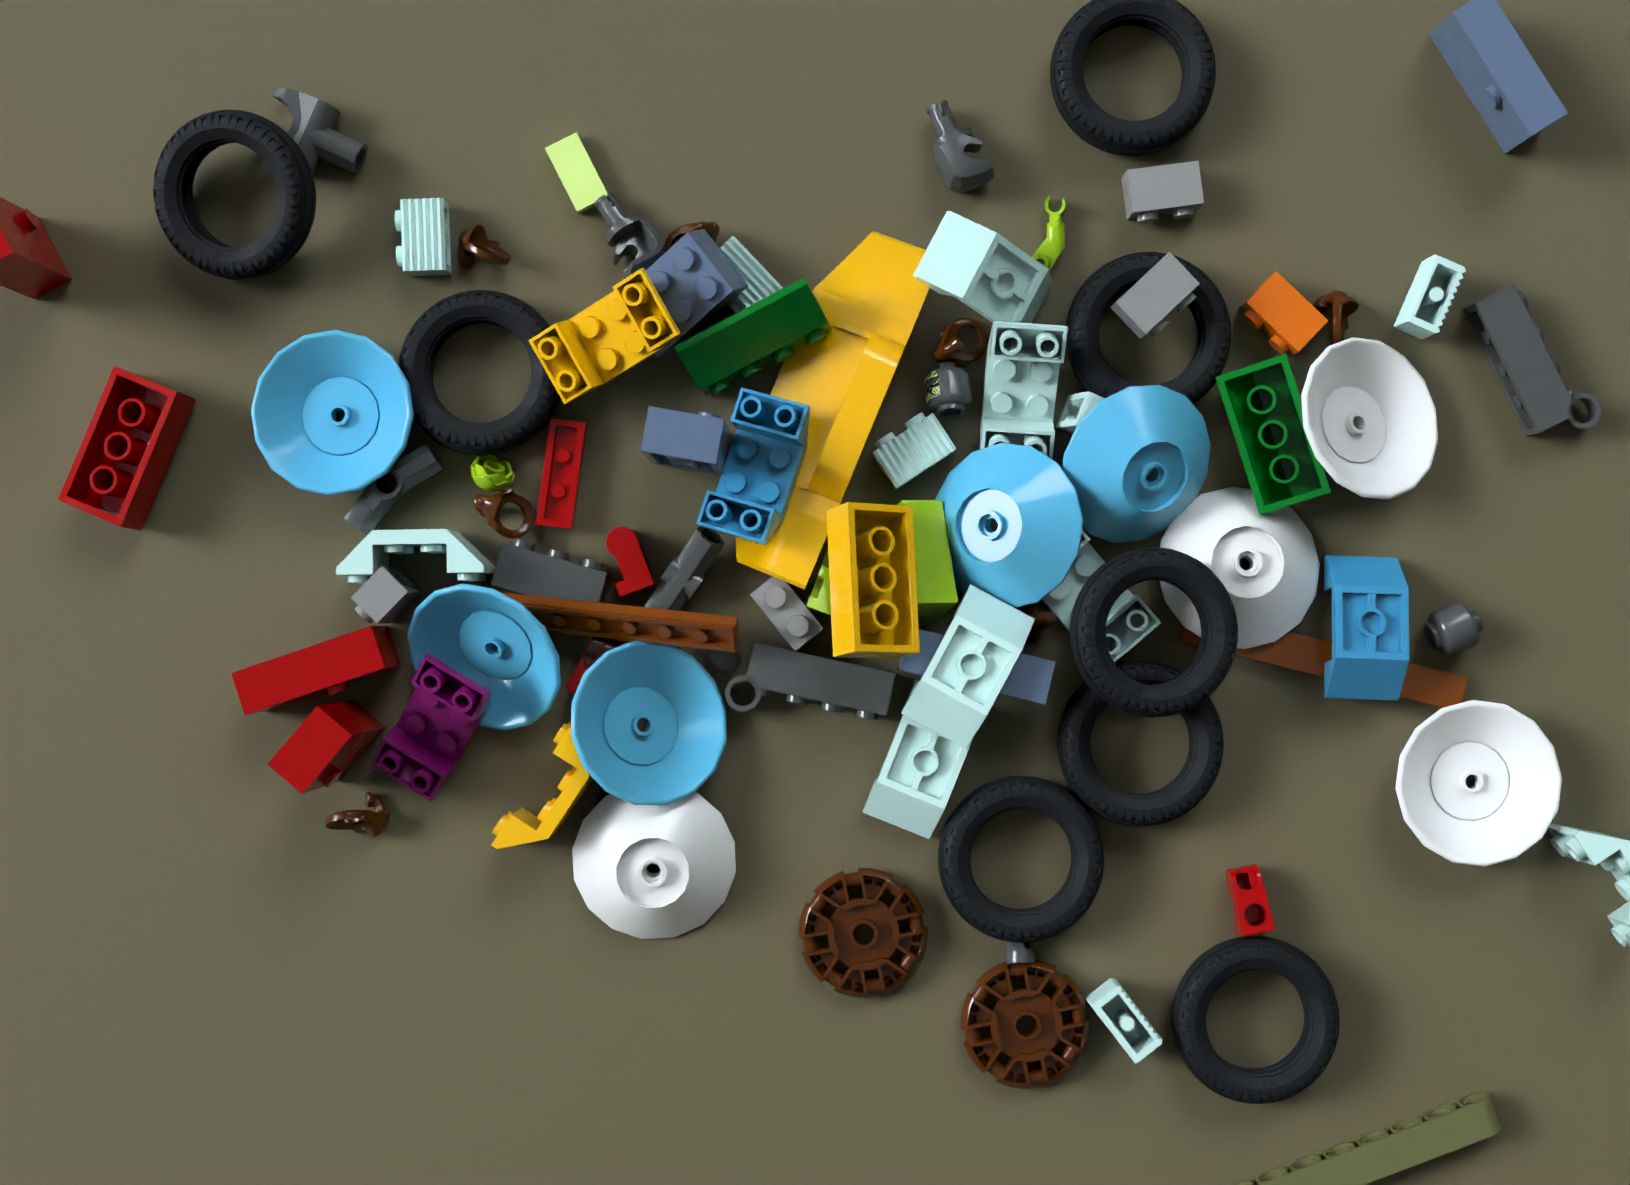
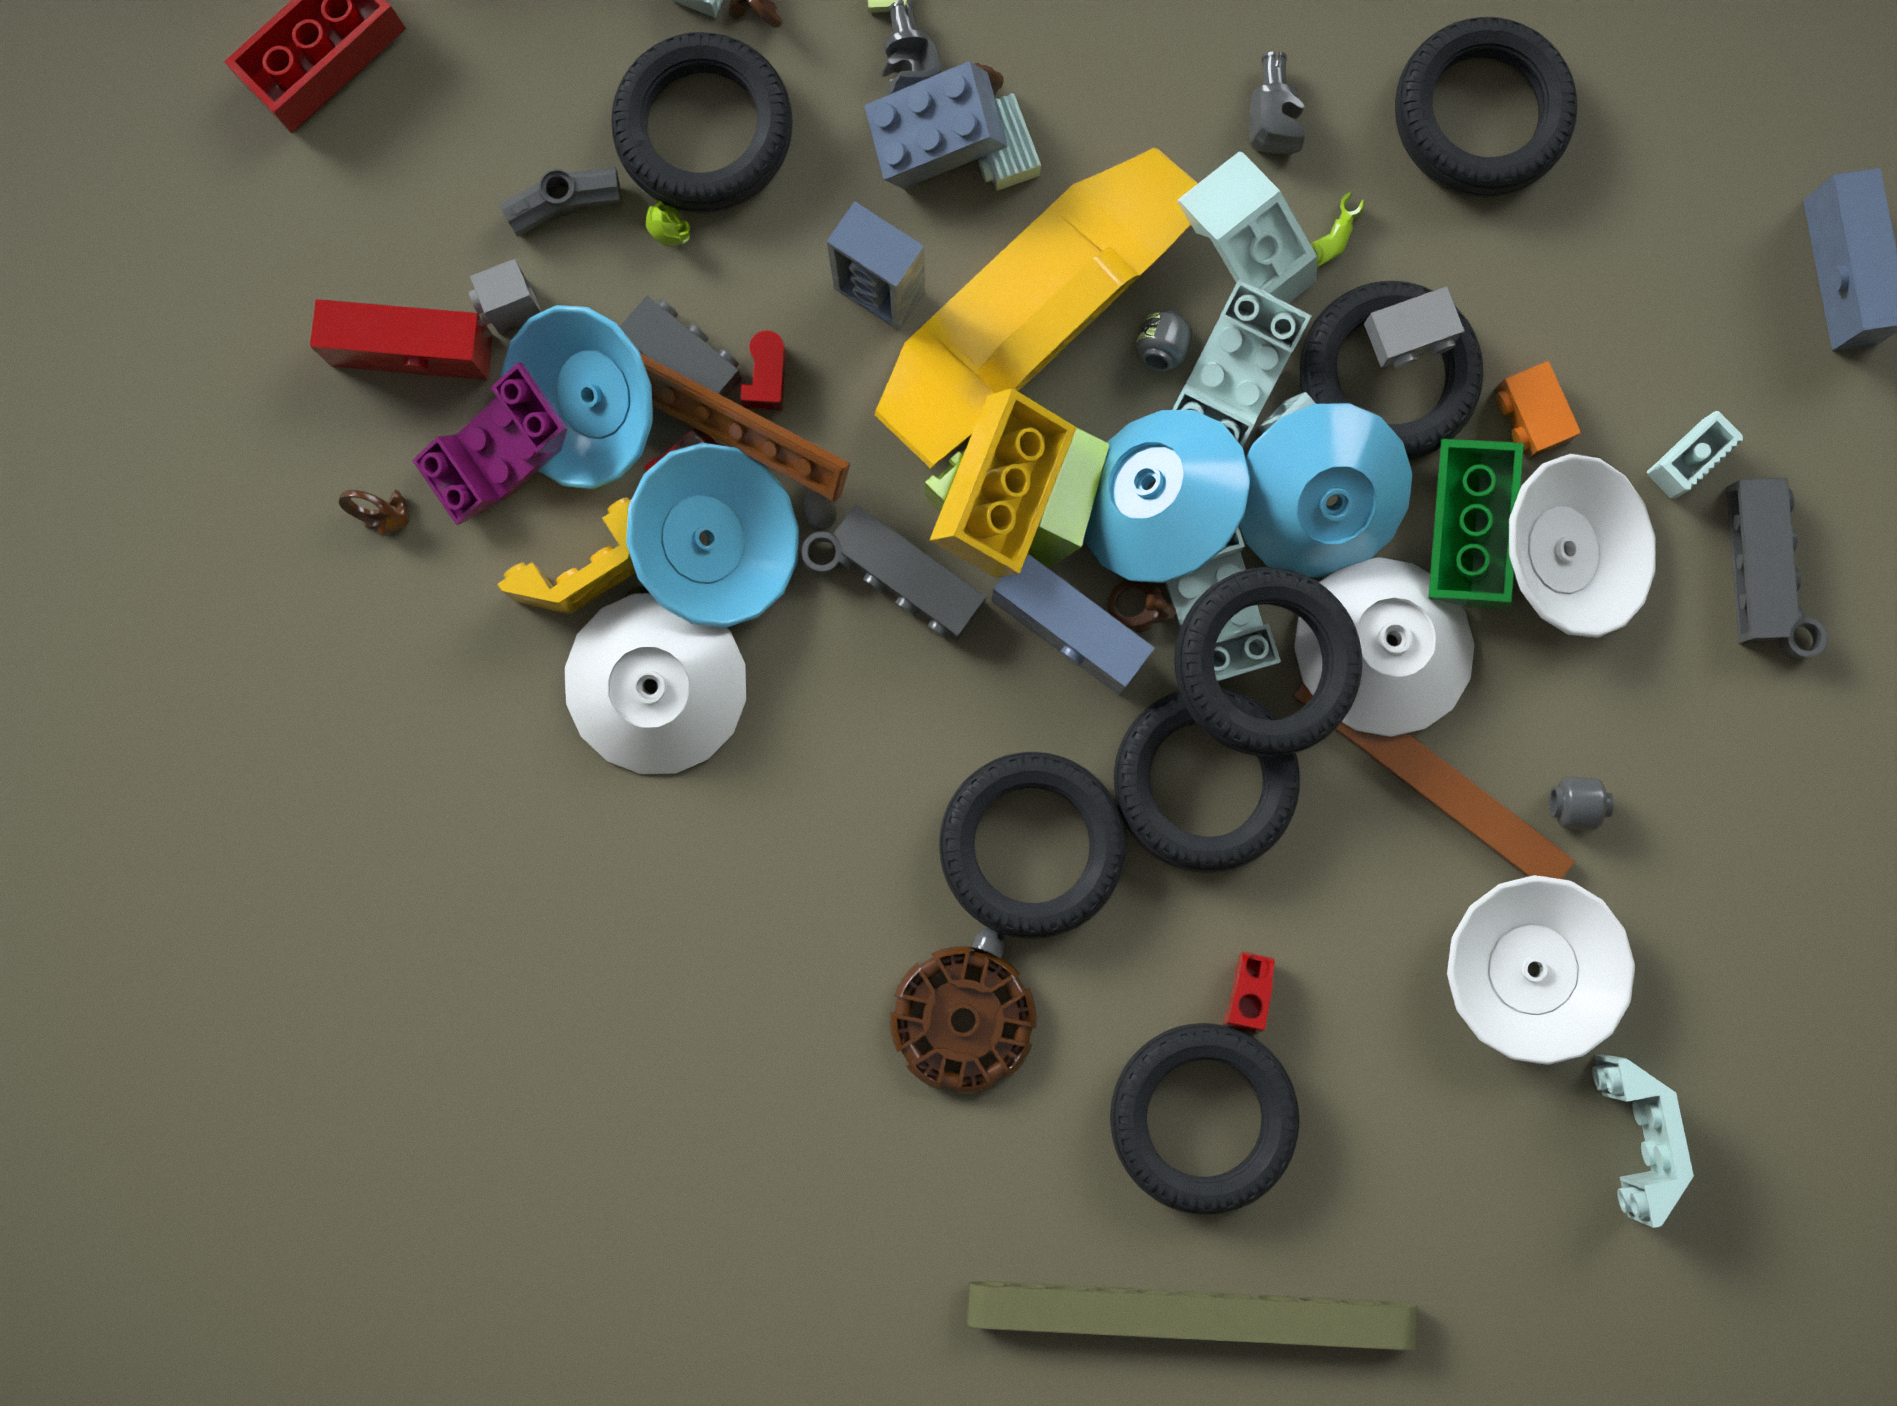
camera: 20 degrees right, 5 degrees down
(299, 405) = (526, 61): medium azure dish -> none
(326, 745) = (377, 411): red brick -> none
(375, 548) = (550, 251): light aqua slope -> none
(490, 507) = (650, 256): reddish brown piece -> none
(561, 473) = (736, 256): red plate -> none
(605, 338) = (842, 135): yellow slope -> none
(687, 571) = (819, 406): dark grey piece -> none
(754, 338) = (990, 200): green slope -> none
(758, 467) = (941, 331): dark azure slope -> none
(786, 612) = (903, 489): light grey piece -> none
(863, 910) = (861, 852): reddish brown plate -> none
(913, 450) = (1102, 384): light aqua brick -> none
(916, 778) = (974, 699): light aqua slope -> none
(951, 346) = (1187, 294): reddish brown piece -> none
(969, 666) = (1061, 615): light aqua slope -> none
(1124, 1020) = (1067, 1057): light aqua brick -> none
(1162, 191) = (1466, 236): light grey piece -> none
(1342, 307) = (1600, 431): reddish brown piece -> none
(1367, 628) = (1489, 763): dark azure slope -> none

